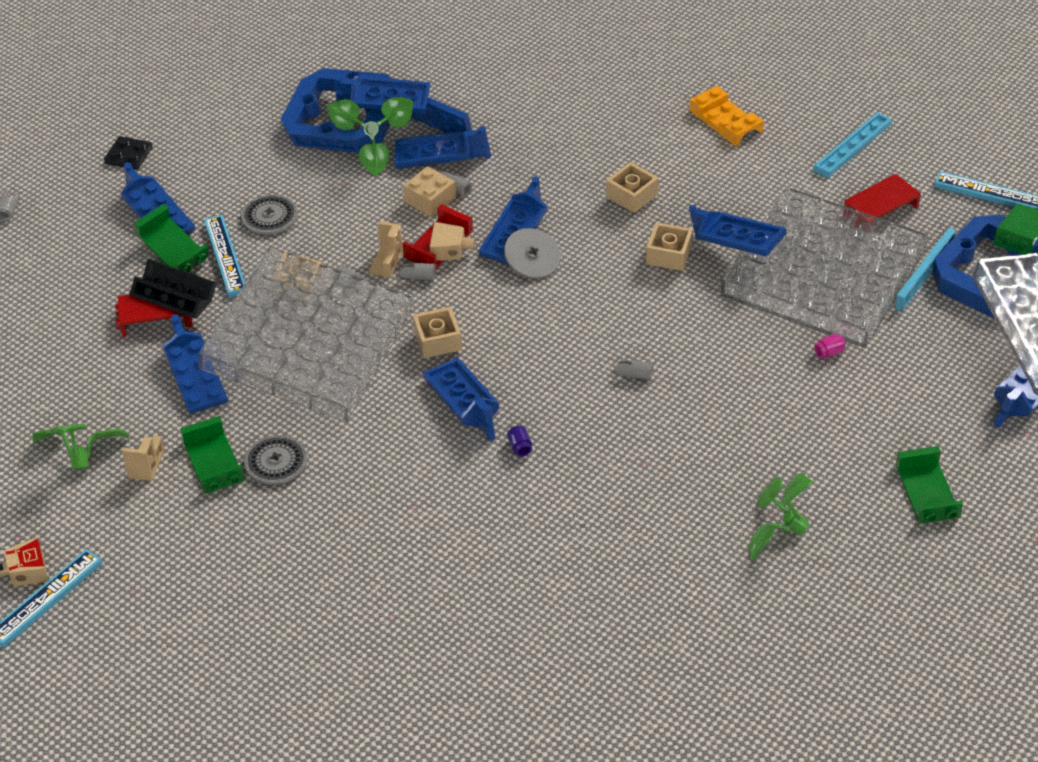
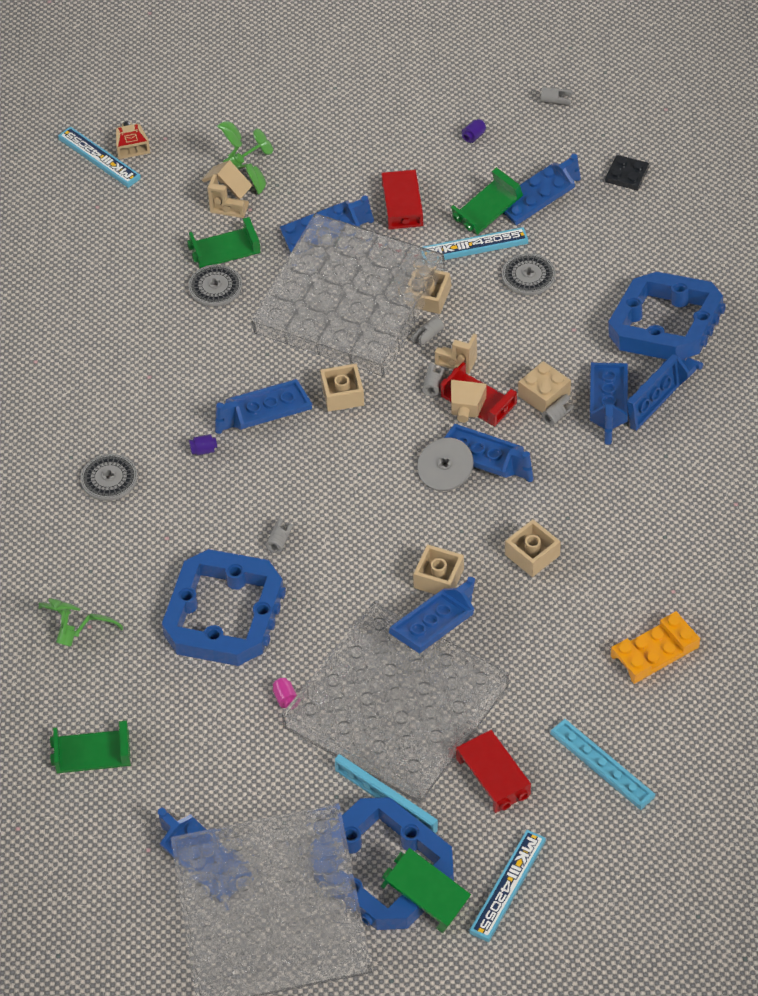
camera: 95 degrees right, 5 degrees up
(53, 262) = (473, 131): none -> dark purple brick
(109, 455) = (231, 177): none -> tan panel
(173, 289) = (411, 201): black slope -> none
(372, 156) = (605, 323): bright green plant -> none
(374, 91) = (659, 333): blue hinge -> none
(583, 516) = (121, 481): none -> piece
(730, 432) = (212, 642): none -> blue panel

